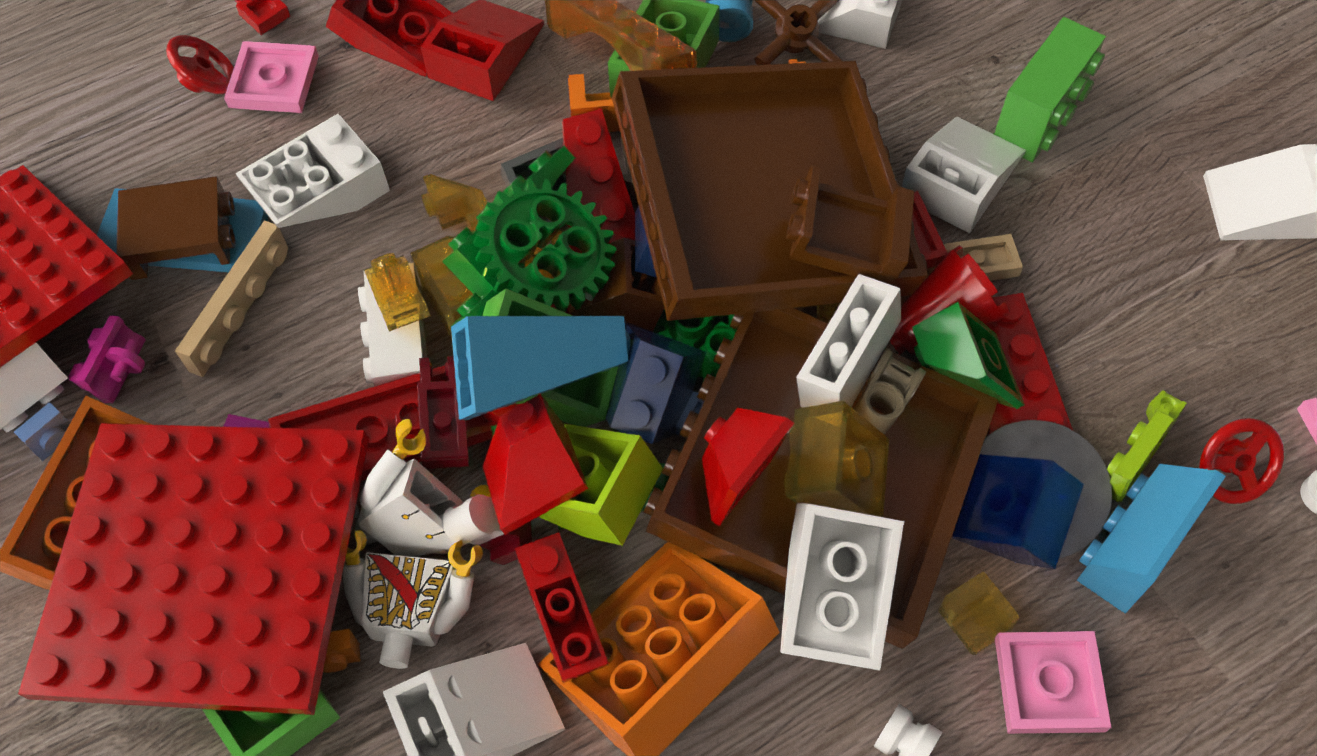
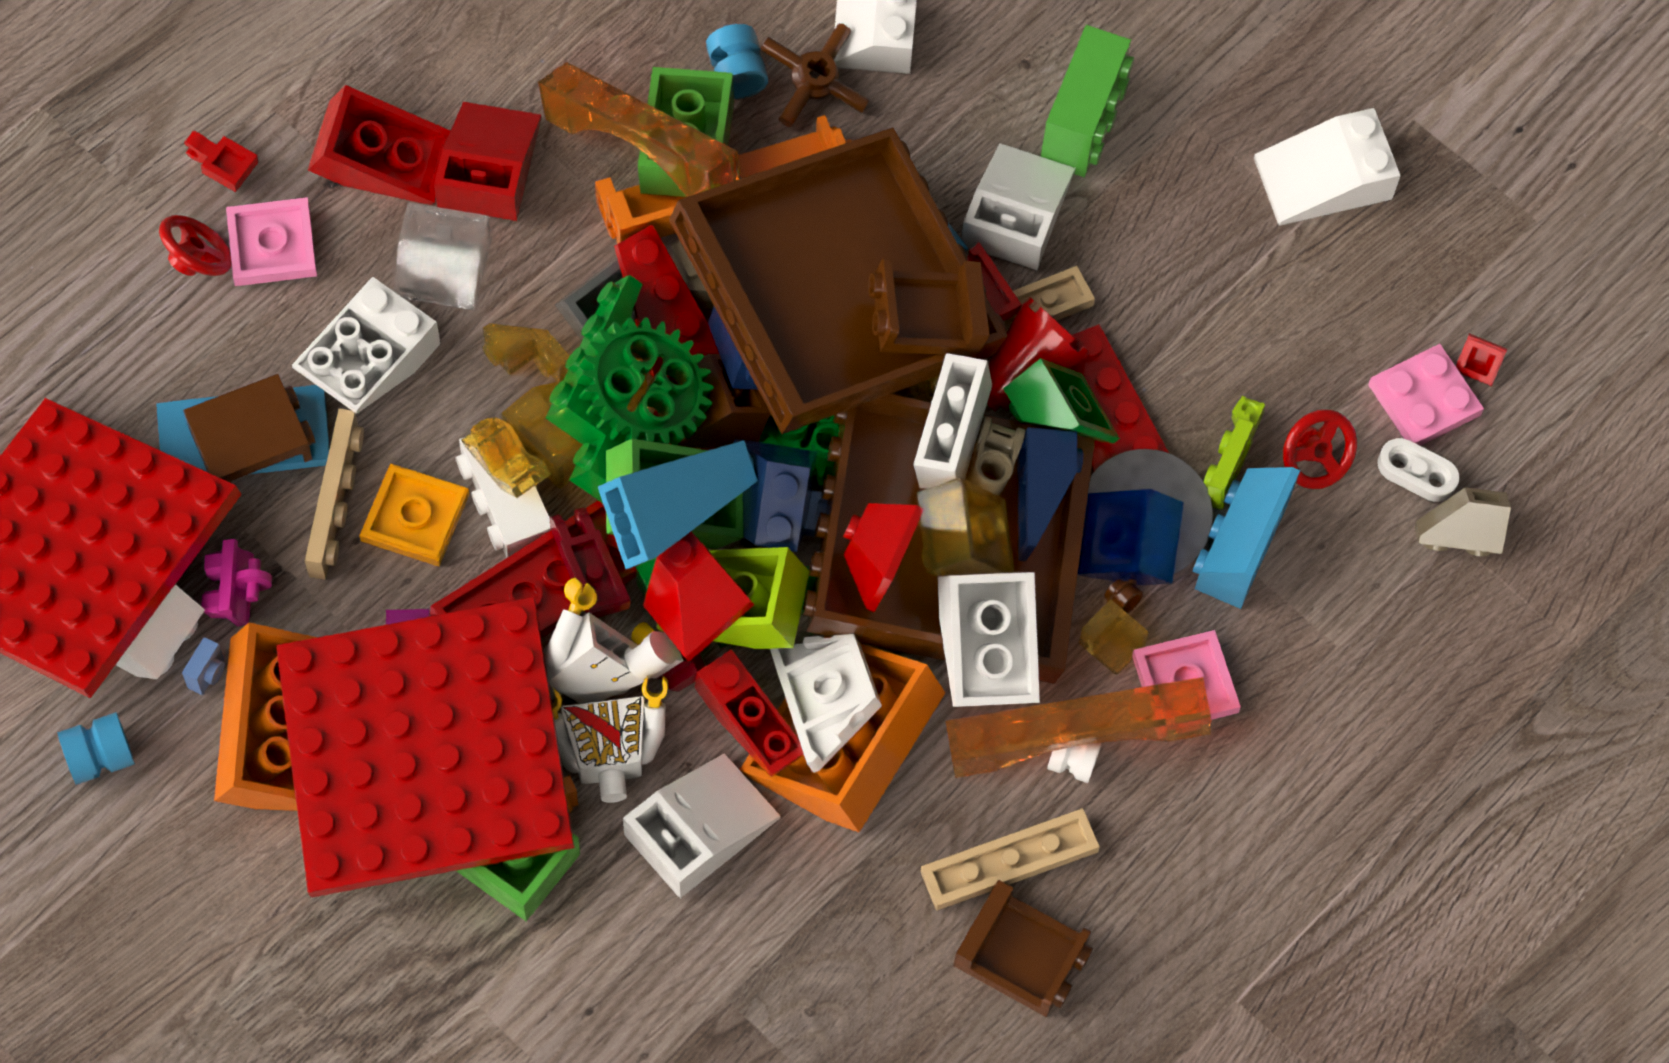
camera: 20 degrees left, 5 degrees up
(306, 335) = (414, 515): none -> light orange tile
(412, 111) = (442, 255): none -> clear slope
(647, 605) = (826, 693): none -> white wing
(938, 419) = (1045, 472): none -> dark blue slope
(991, 710) = (1143, 713): none -> clear orange arch
(999, 568) = (1124, 594): none -> reddish brown plate

